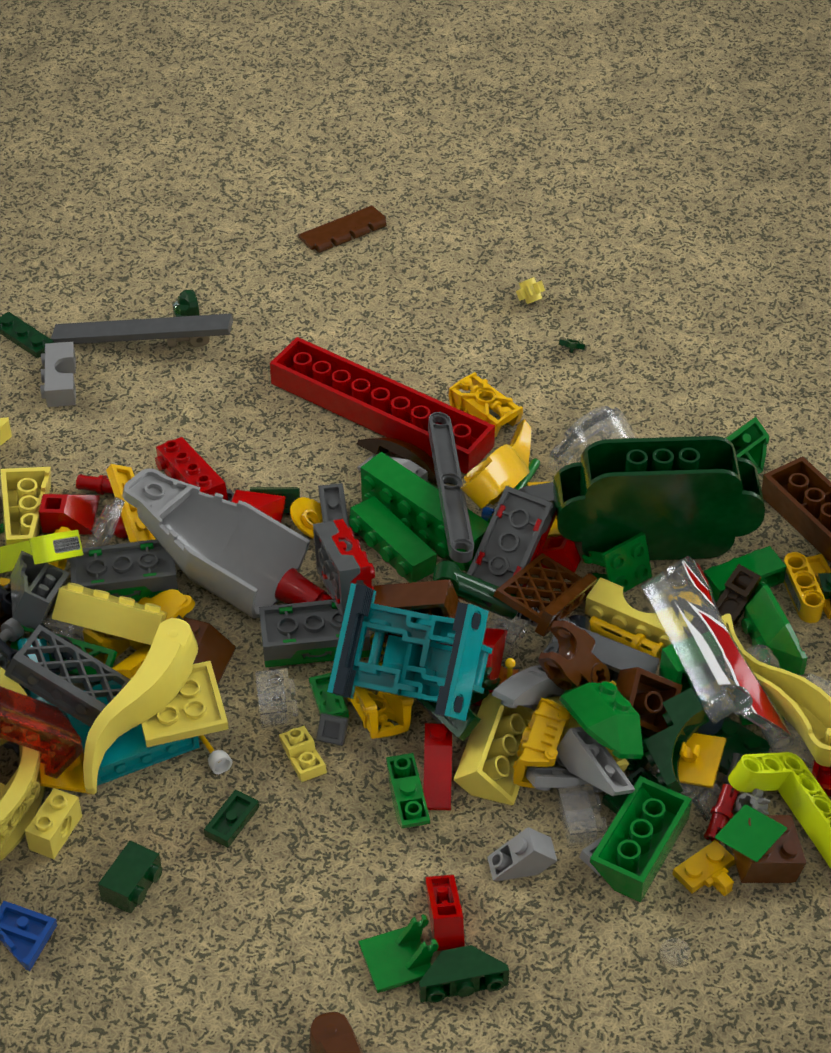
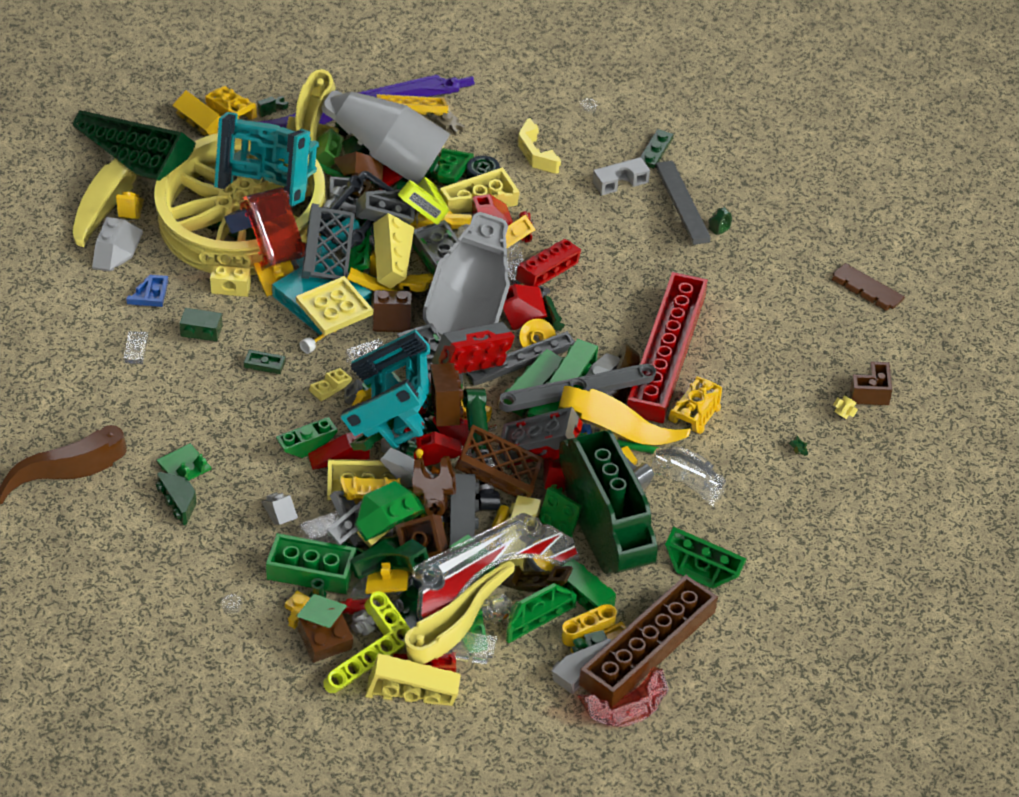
camera: 70 degrees right, 0 degrees up
(134, 974) = (135, 347): none -> clear plate
(145, 695) = (333, 282): light yellow animal -> none
(445, 912) = (220, 478): red slope -> none
(510, 256) = (874, 387): none -> reddish brown brick
(684, 846) = (318, 587): none -> dark green pin

